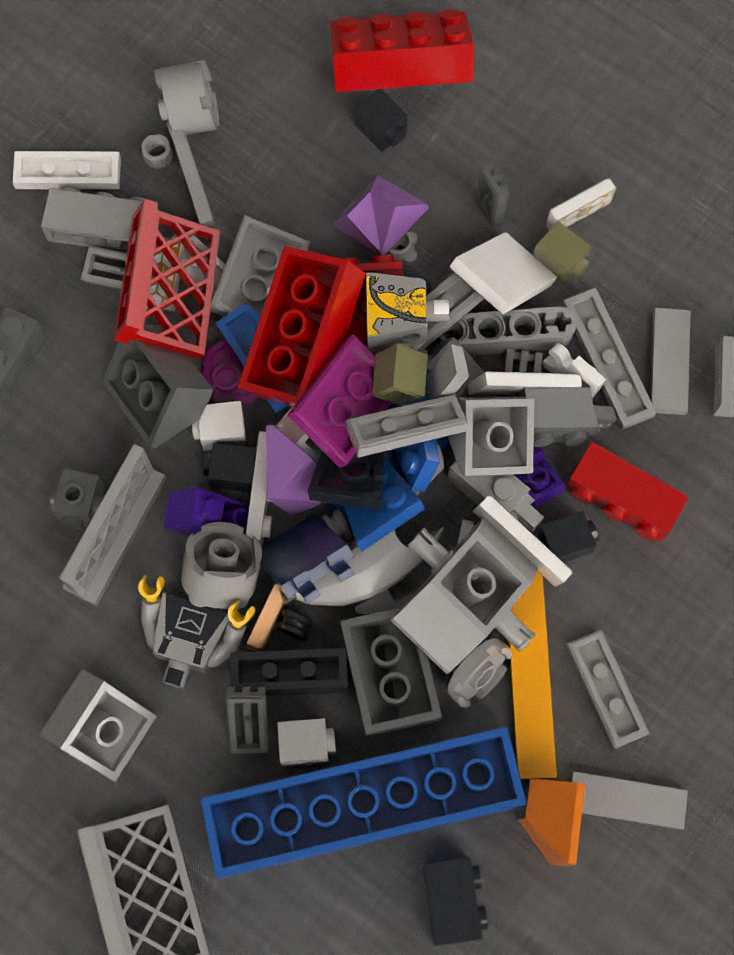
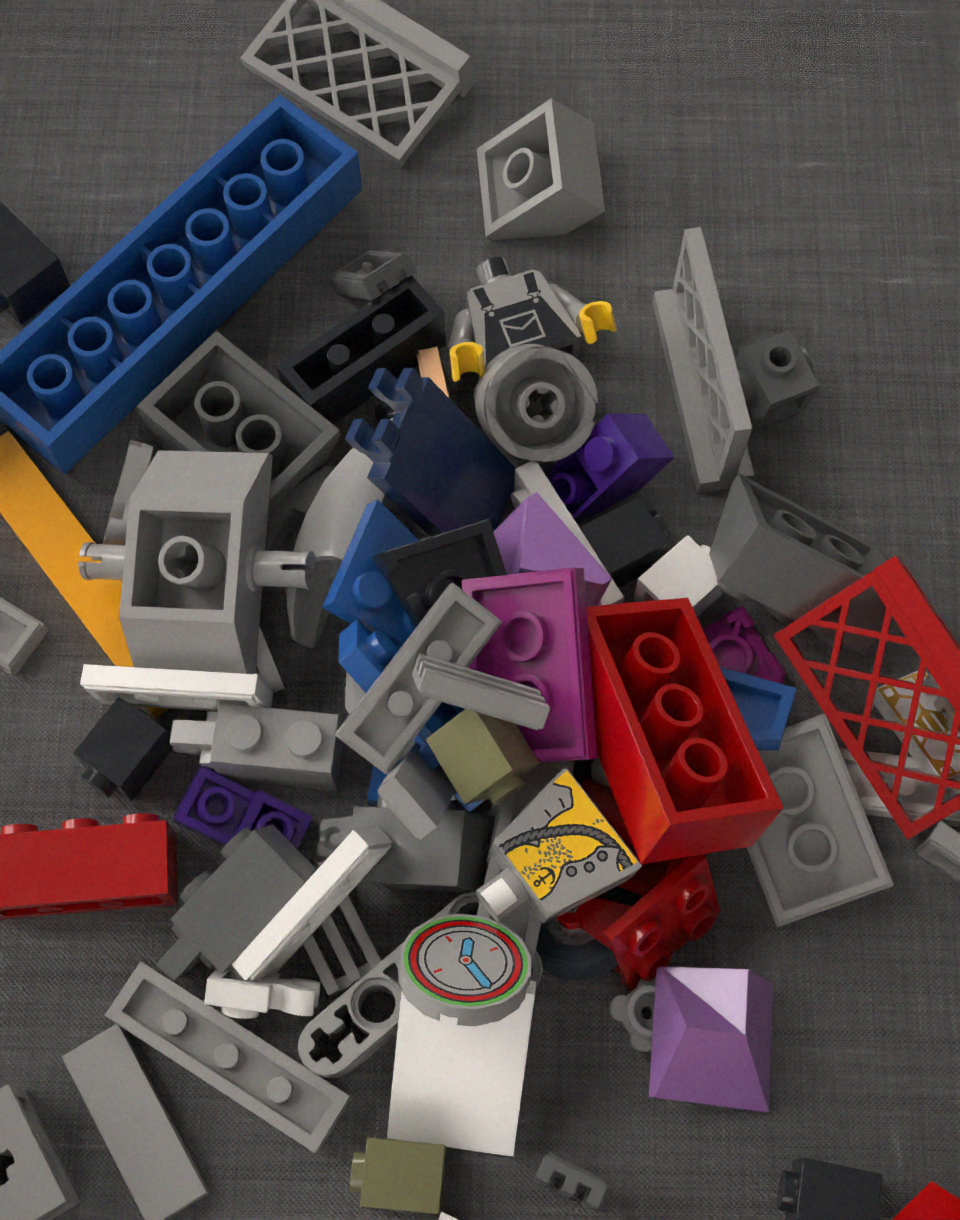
camera: 145 degrees right, 5 degrees down
(305, 743) = (285, 287): light grey brick -> none
(387, 390) = (480, 692): none -> light grey tile
(480, 286) = (464, 969): none -> tile
(497, 436) = (303, 786): light grey slope -> none

